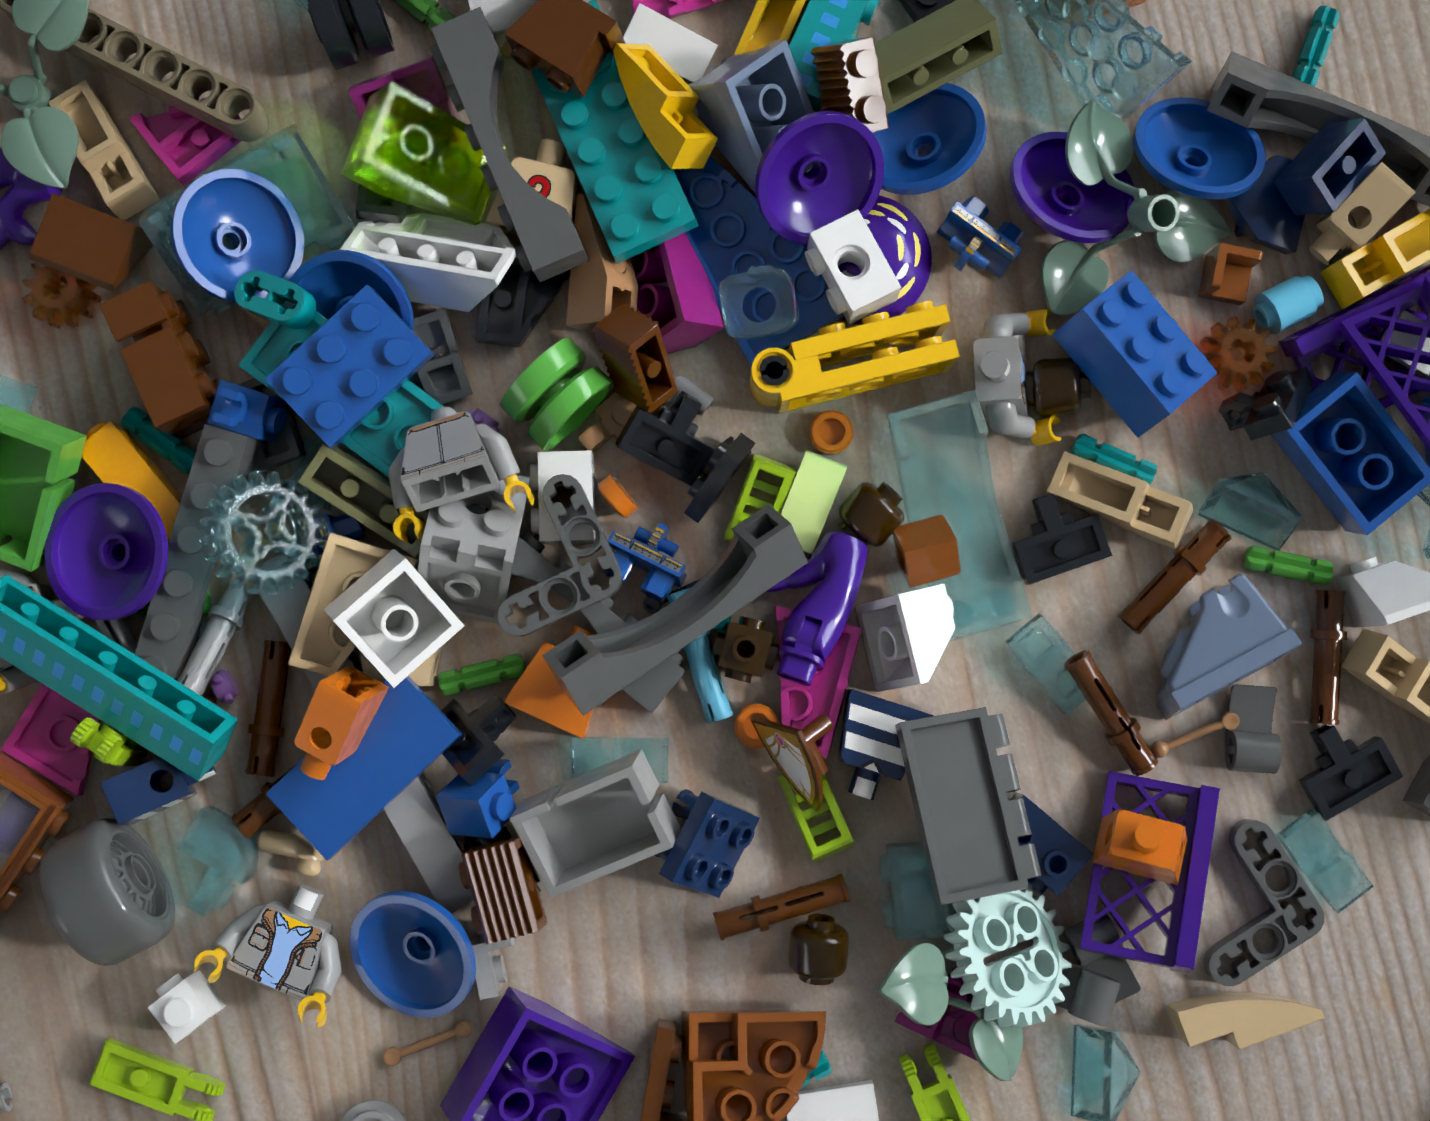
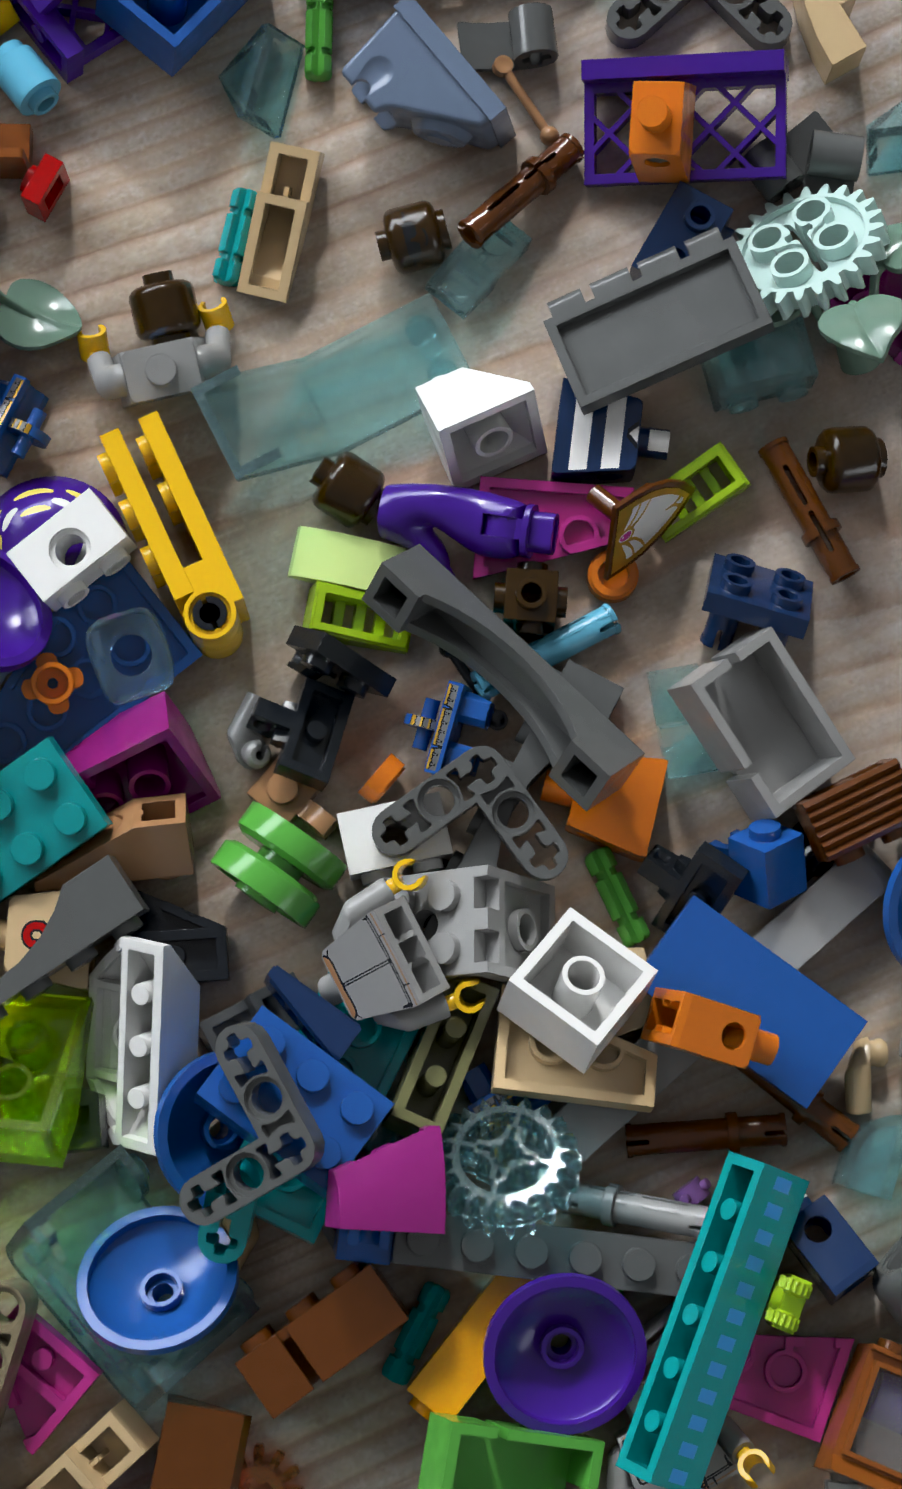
camera: 100 degrees left, 5 degrees down
(254, 429) = (392, 1187): none -> magenta slope
(320, 338) = (272, 1128): none -> dark grey beam
(416, 402) = (313, 1015): none -> dark blue slope
(482, 418) = (316, 956): medium lavender piece -> none
(636, 358) = (221, 778): reddish brown brick -> none
(745, 221) = (49, 668): none -> orange plate
(831, 432) = (261, 554): orange tile -> none
(926, 550) = (379, 419): dark orange panel -> none
(1059, 542) = (340, 280): black hinge -> none
(1084, 611) = (413, 237): none -> dark brown head
(1134, 354) = (114, 228): blue brick -> none
(1186, 303) = (43, 186): none -> red plate
(1187, 563) = (345, 143): reddish brown pin -> none
(1247, 368) = (88, 105): clear orange gear -> none
(1272, 408) = (149, 72): black hinge -> none

